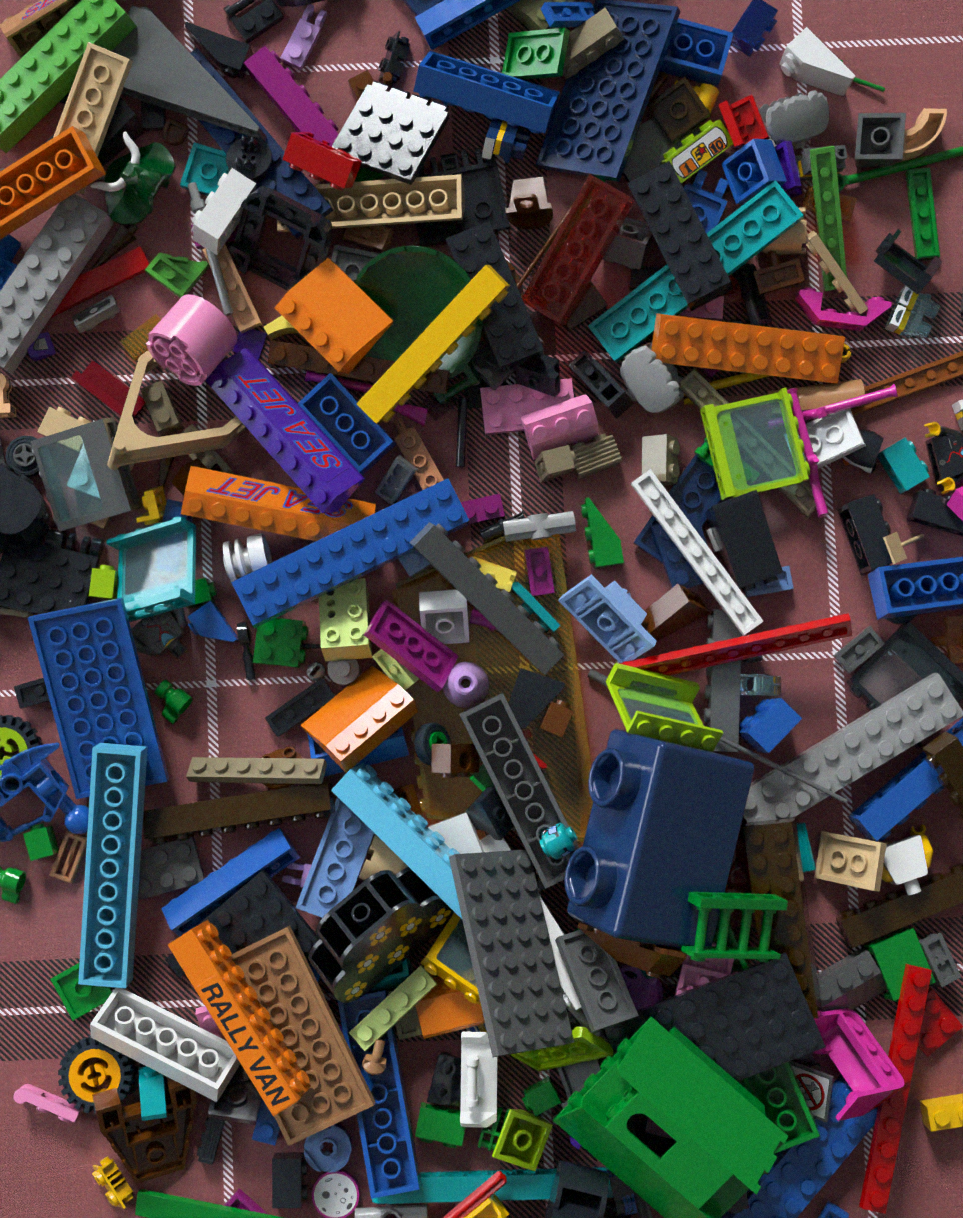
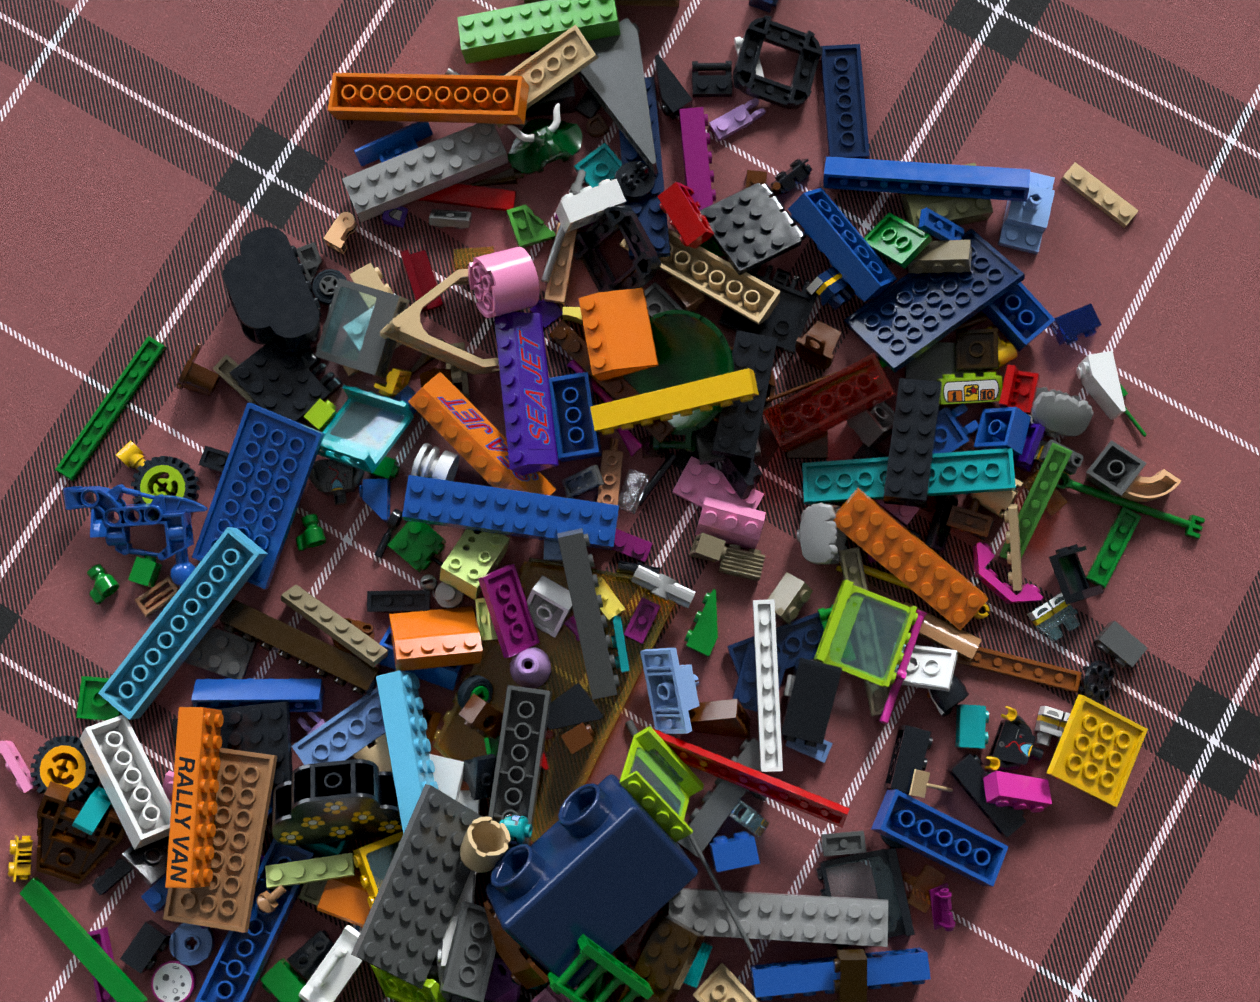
camera: 35 degrees right, 5 degrees down
(161, 408) = (449, 317): dark tan brick -> none
(447, 457) = (632, 490): none -> clear plate
(541, 874) = (484, 844): none -> tan cylinder
(601, 384) = (782, 512): black slope -> none
(850, 403) = (935, 644): dark pink piece -> none

